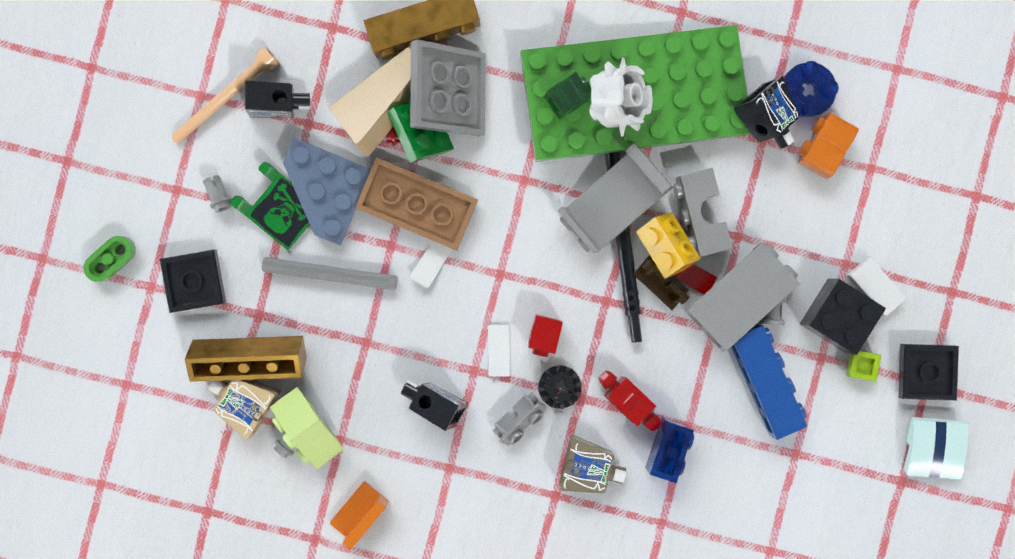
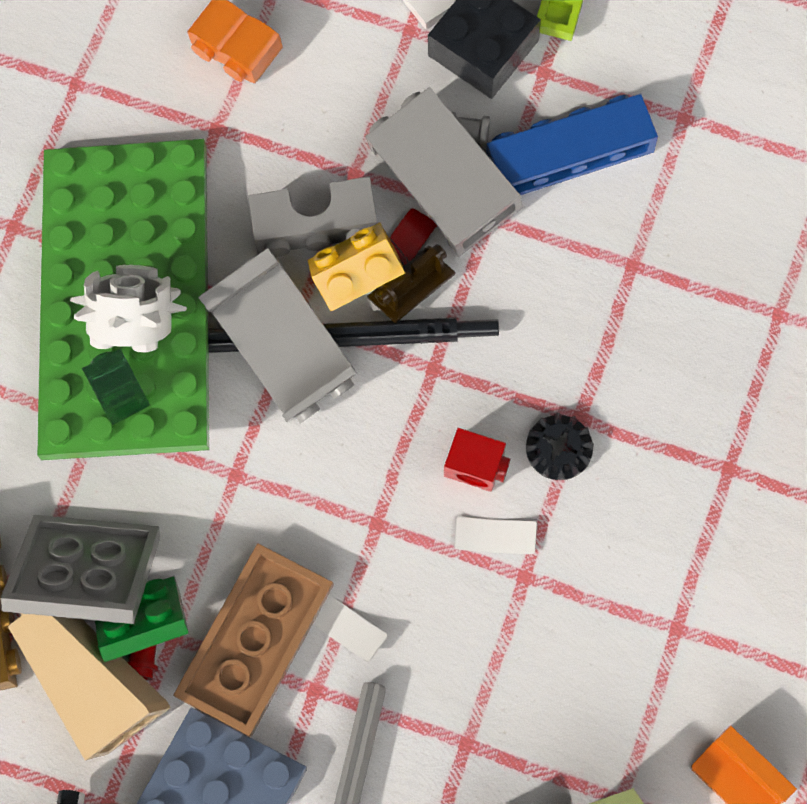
camera: 80 degrees left, 15 degrees down
(444, 408) = (581, 619): black torso -> none
(513, 428) = (596, 496): light grey hinge -> none
(588, 467) = (685, 412): torso -> none
(630, 400) = (586, 343): red piece -> none
(669, 450) = (663, 289): clear blue brick -> none
(769, 112) = (177, 112): black torso -> none
(823, 83) = (146, 40): clear blue plate -> none

